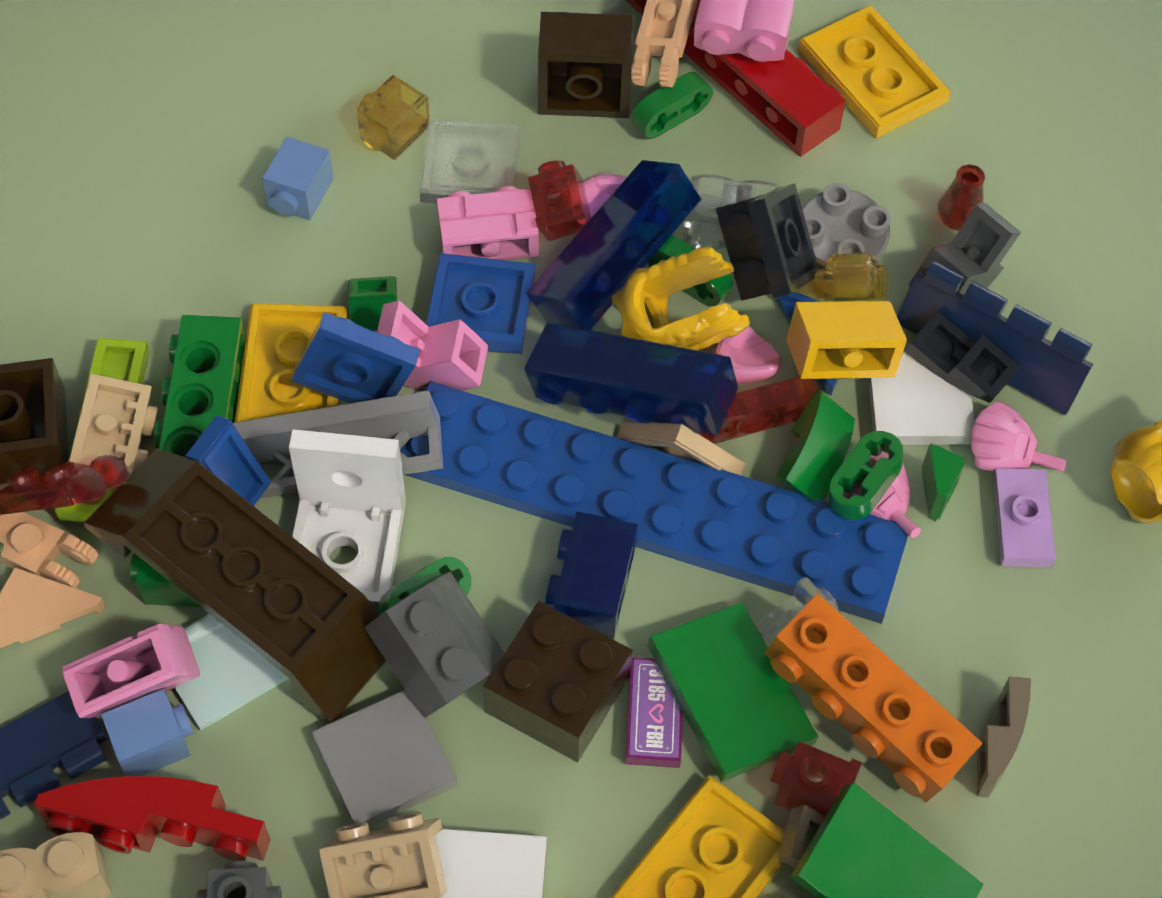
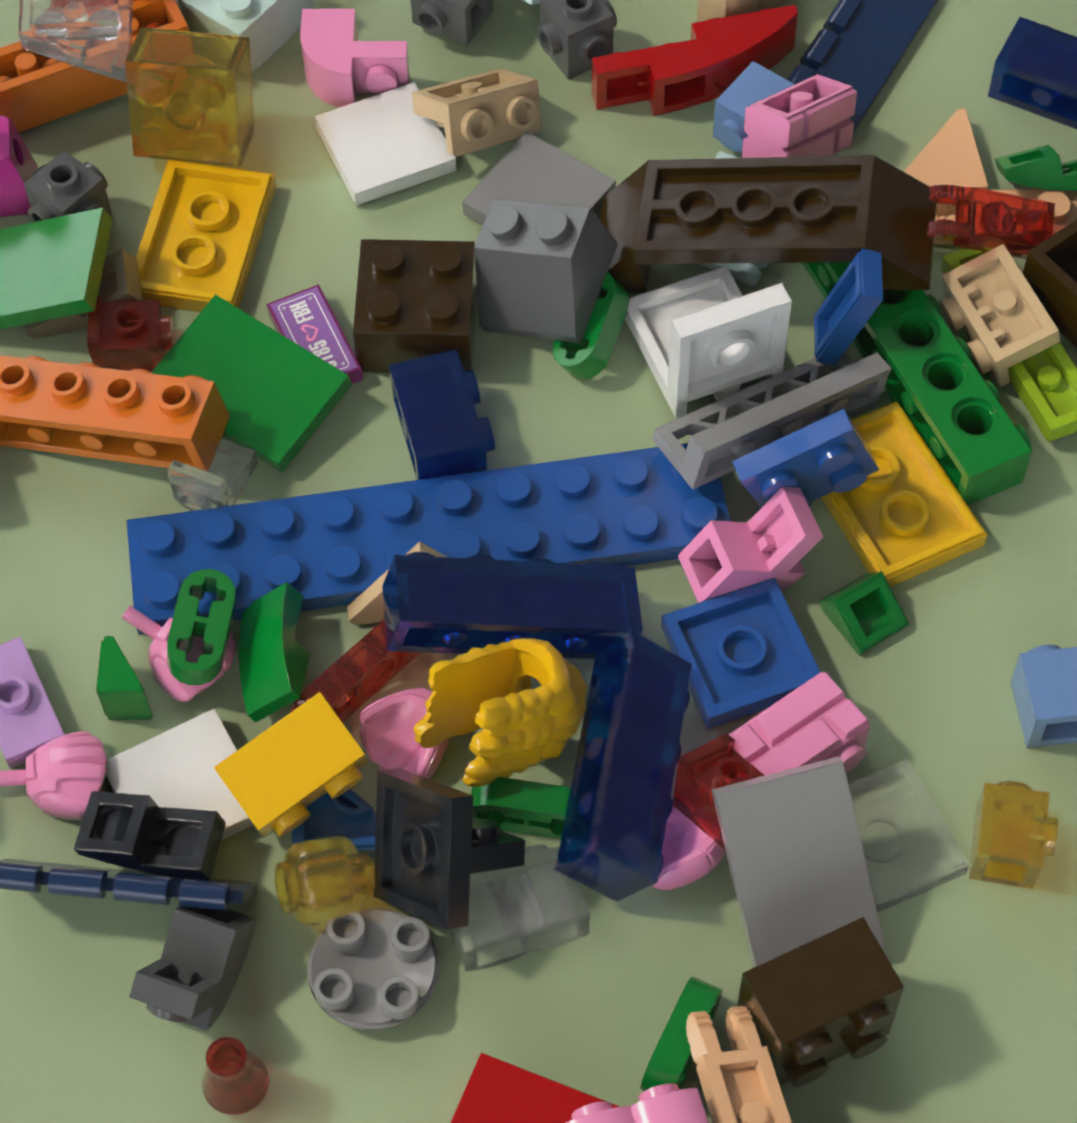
camera: 155 degrees right, 0 degrees up
(545, 134) = (795, 857): none -> light grey tile

